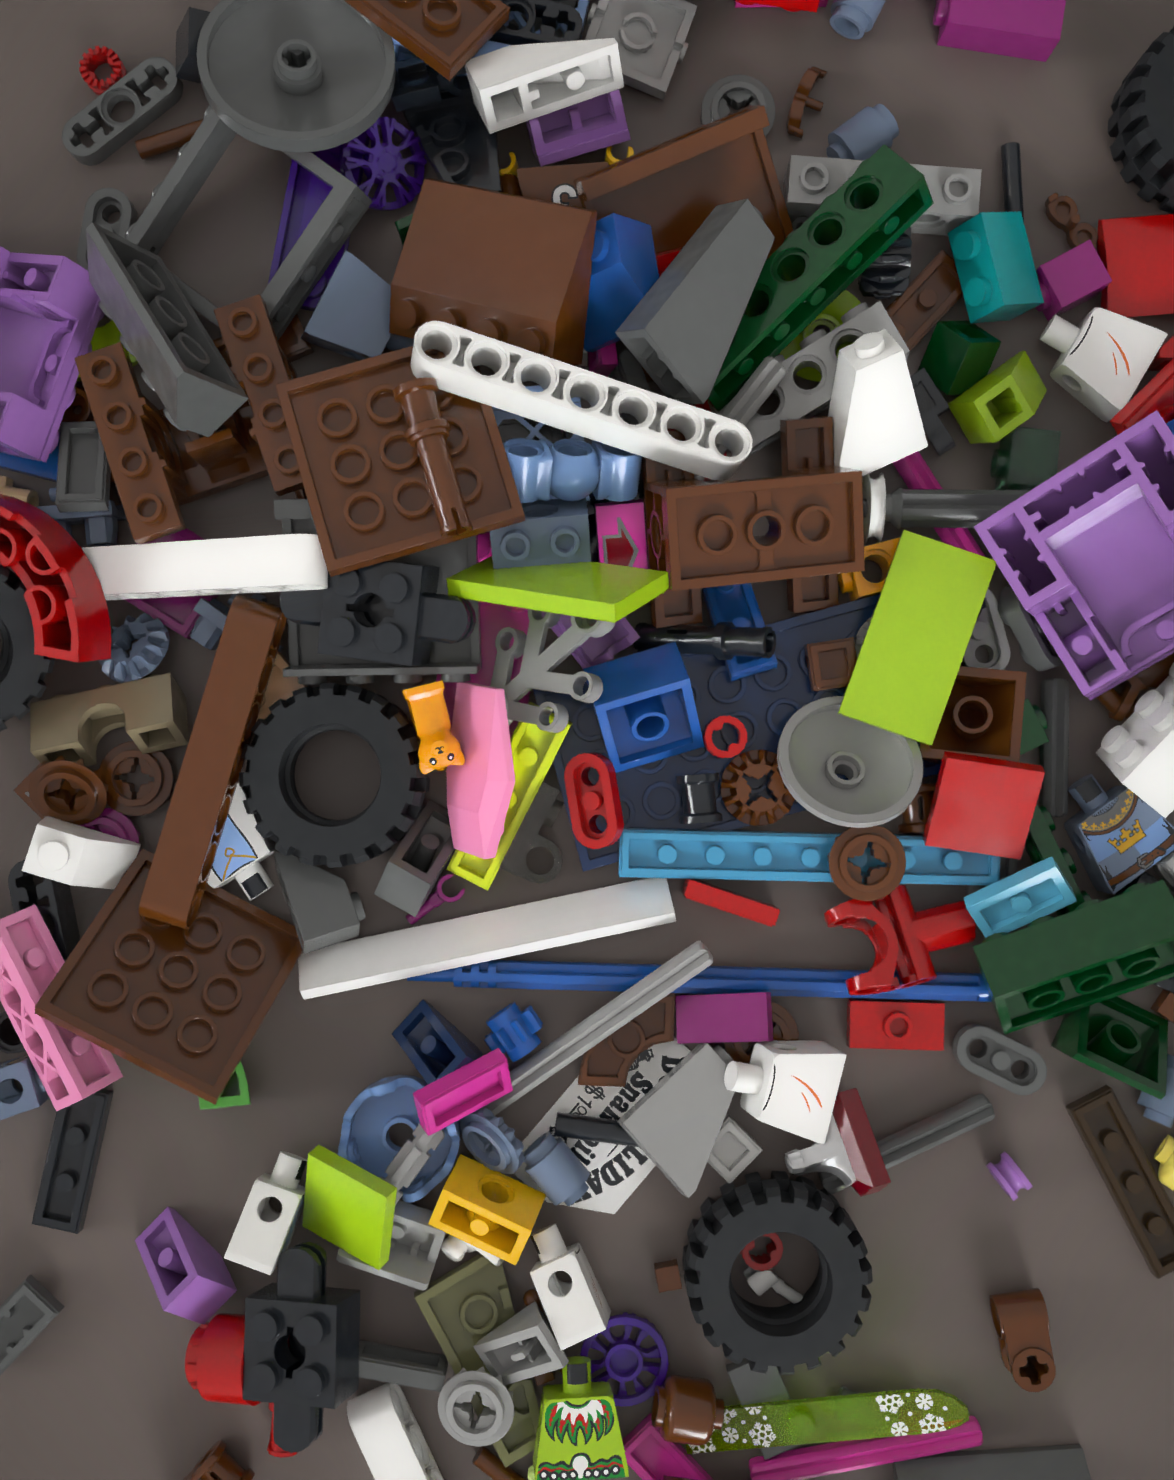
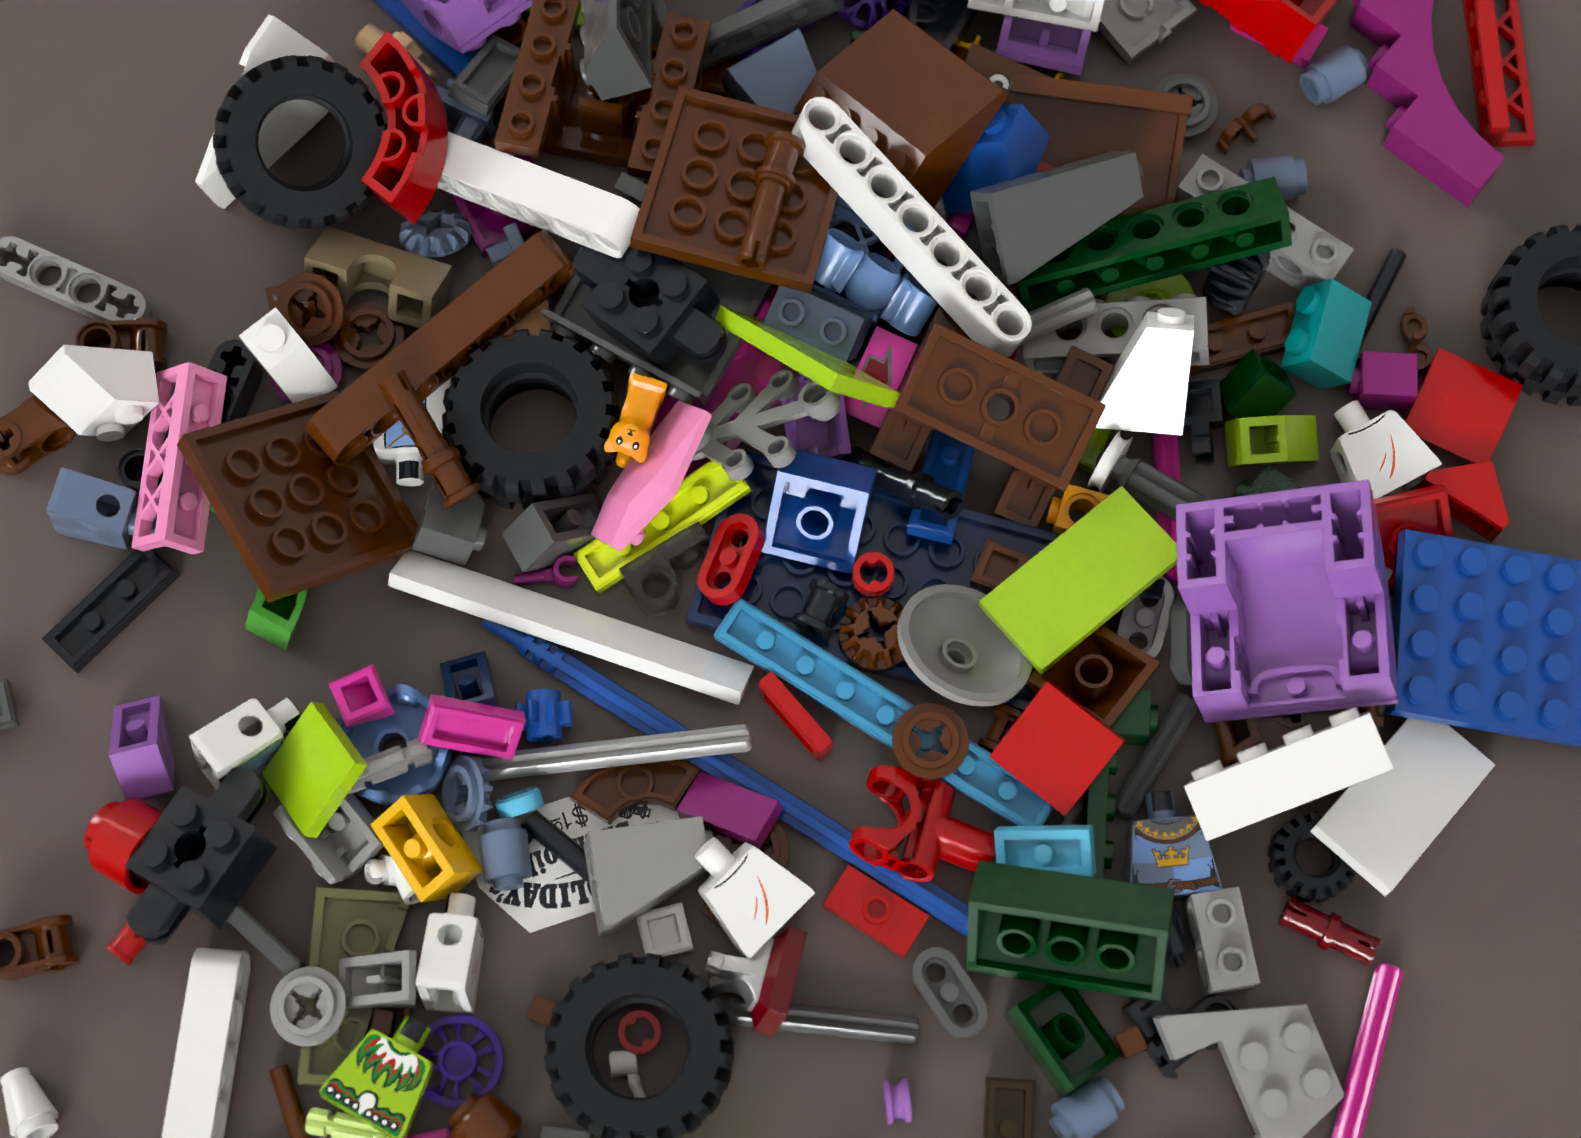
camera: 30 degrees right, 15 degrees down
(280, 873) = (439, 458): none -> reddish brown pin
(349, 1120) = (362, 697): none -> dark pink slope
(540, 1118) = (519, 802): none -> medium azure tile

